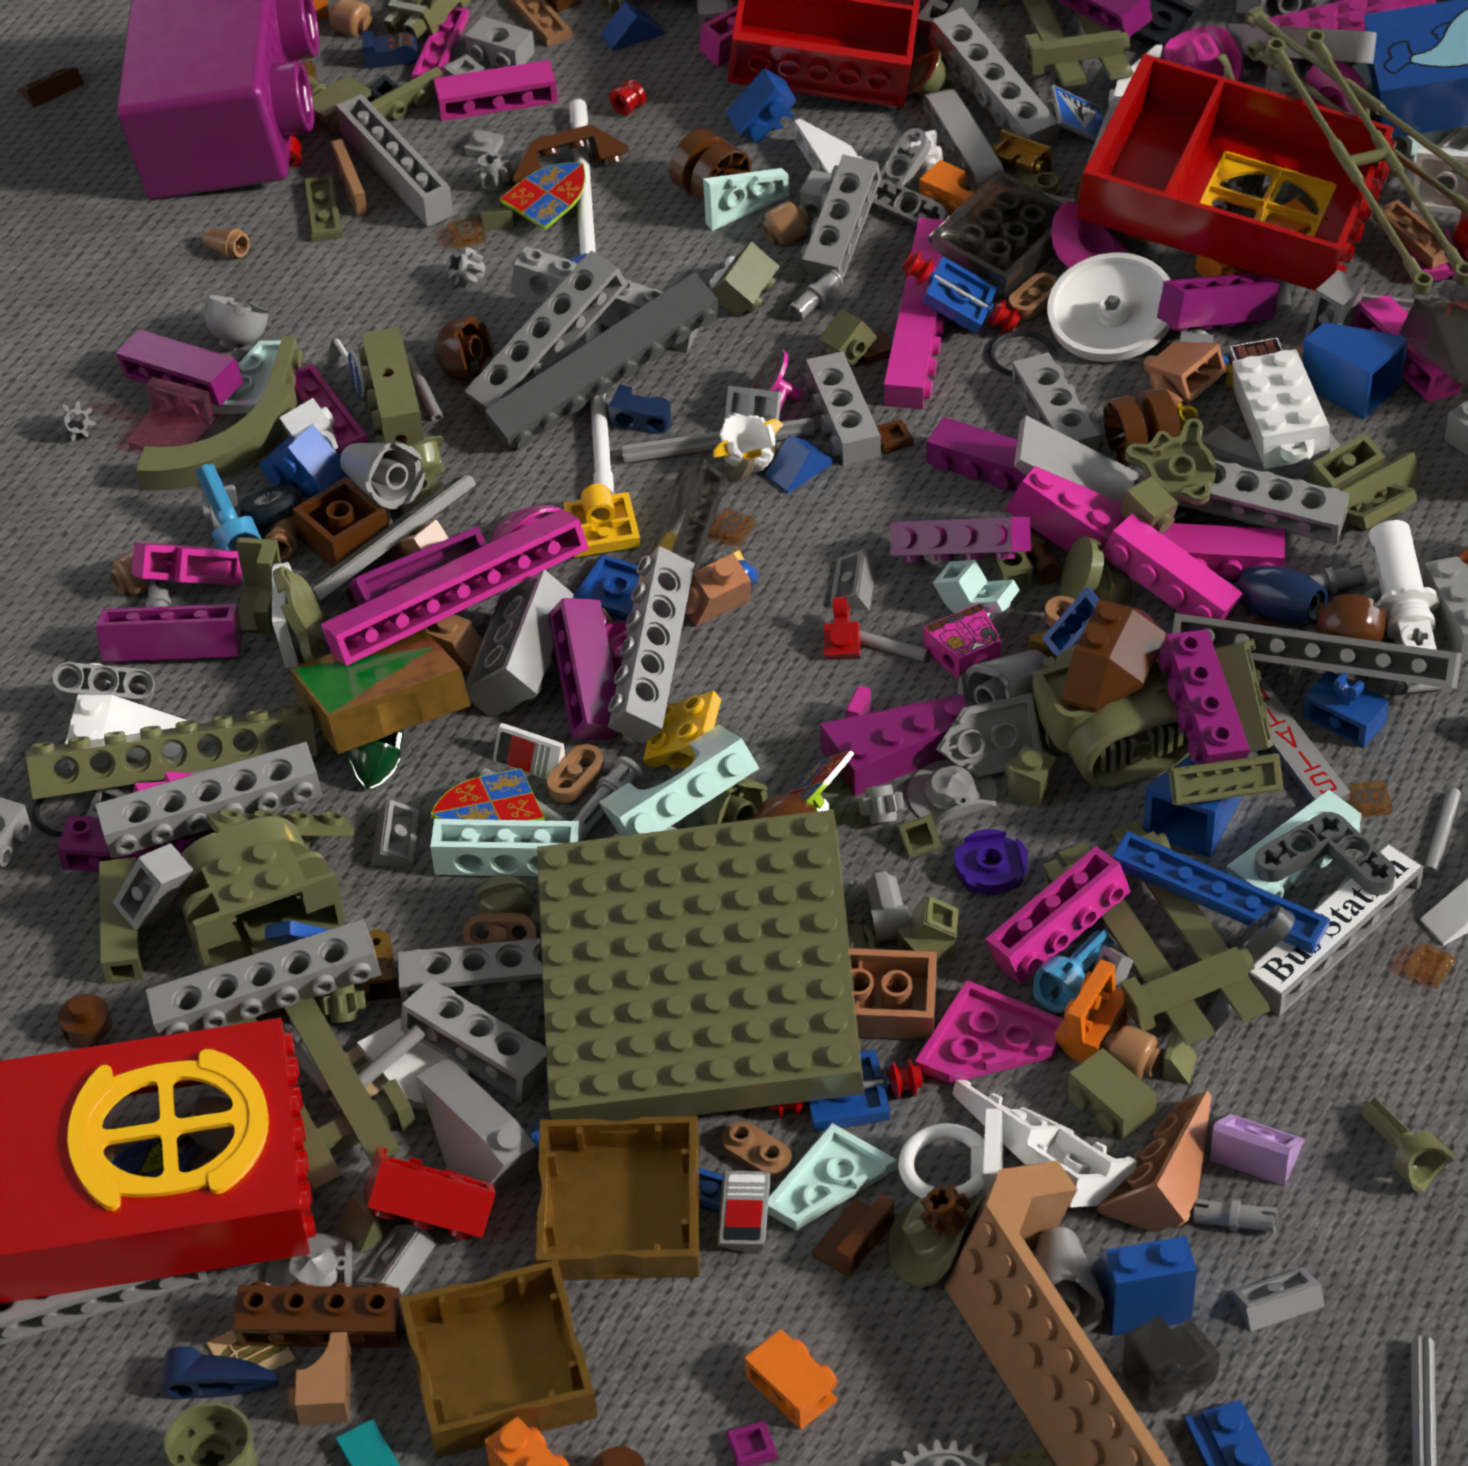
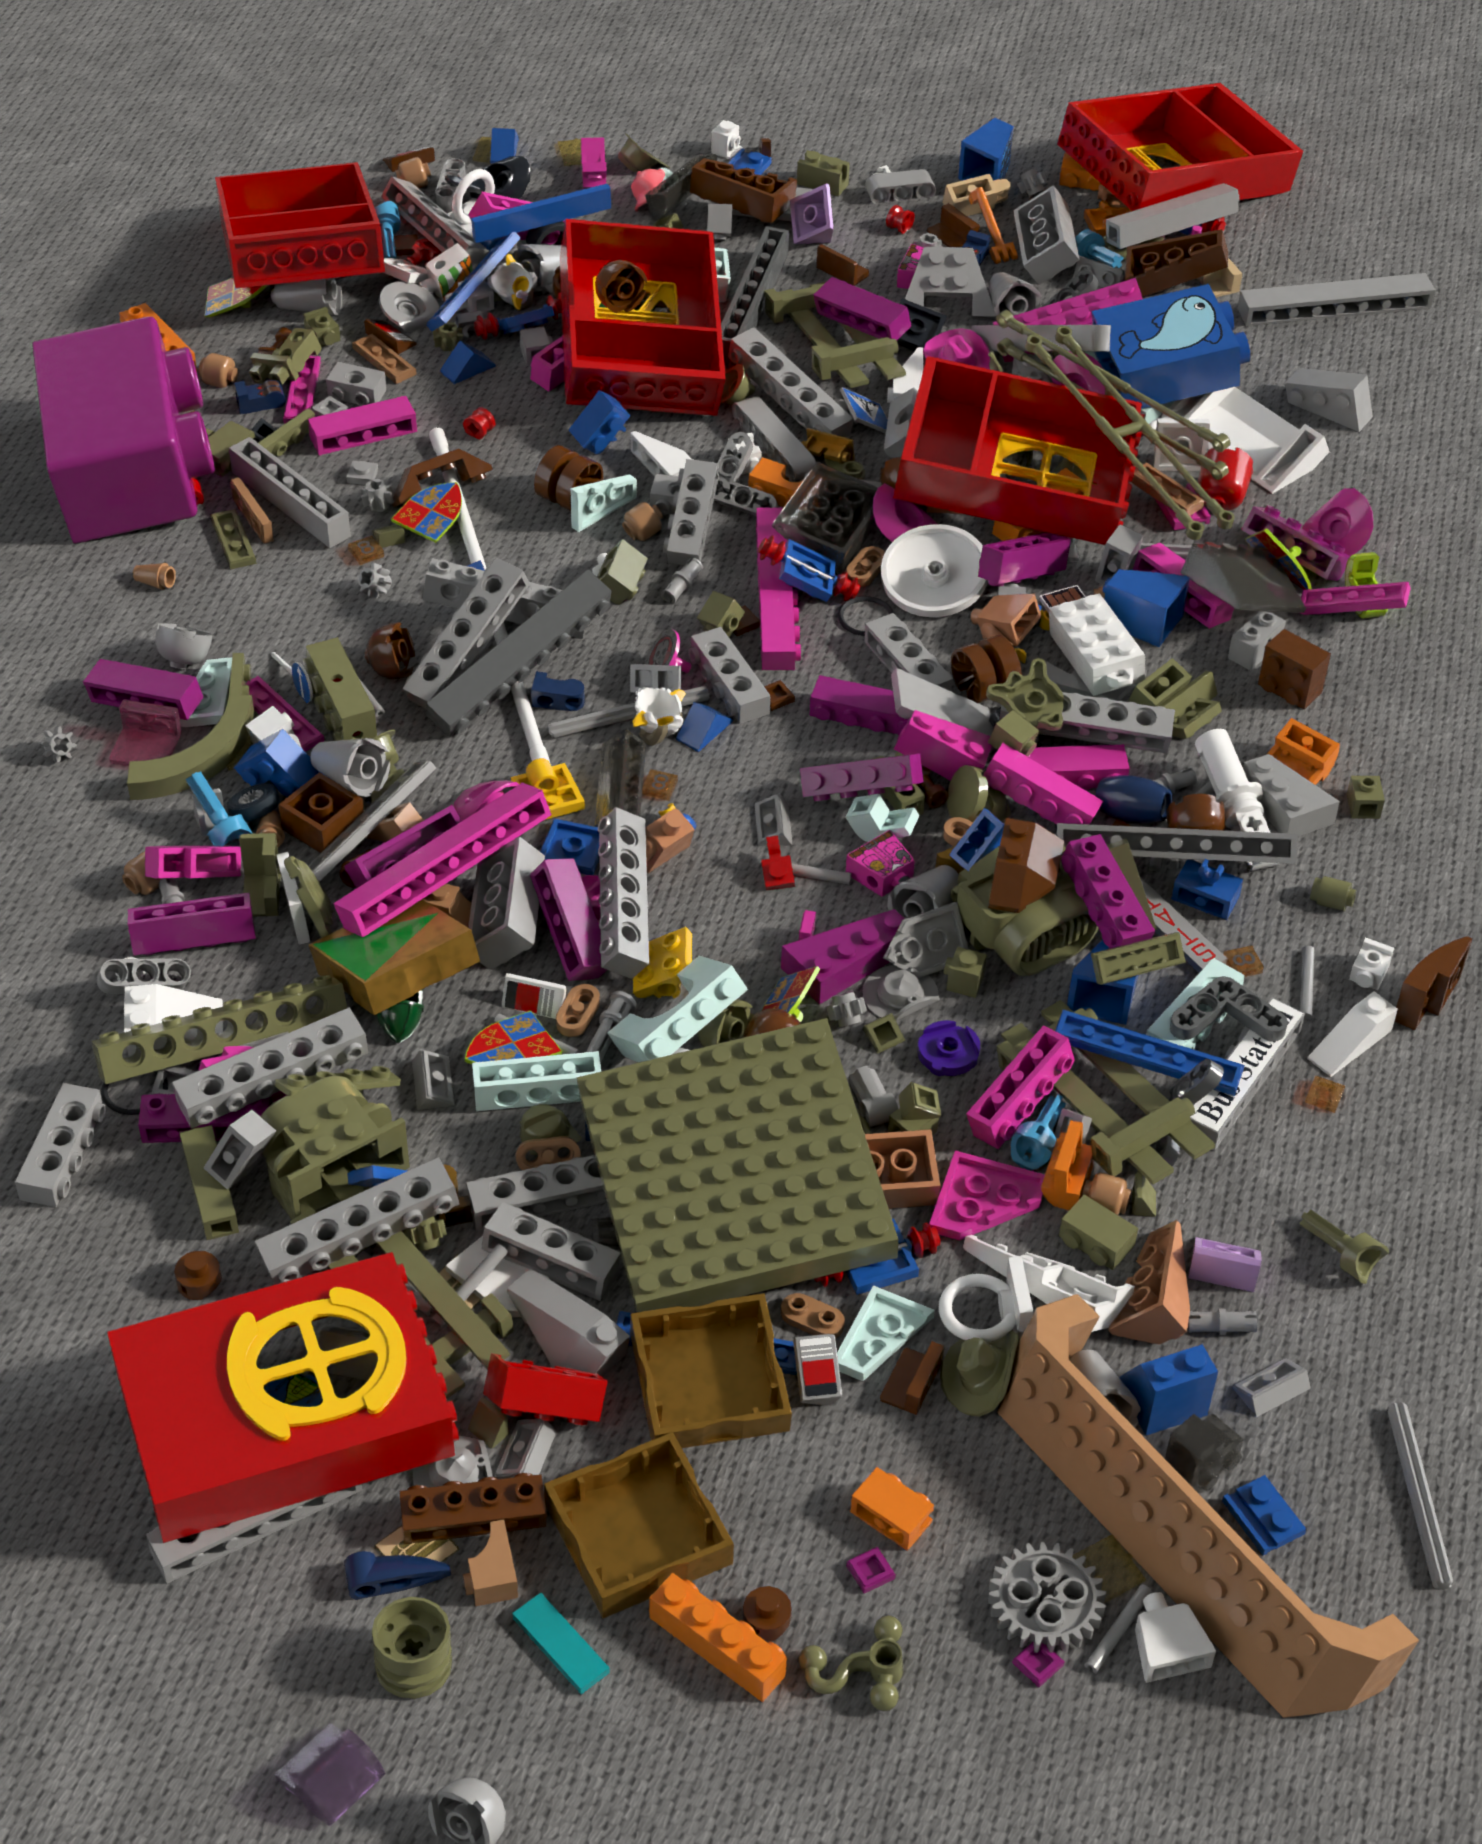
camera: 15 degrees left, 0 degrees up
(945, 1210) = (995, 1348): reddish brown gear -> none

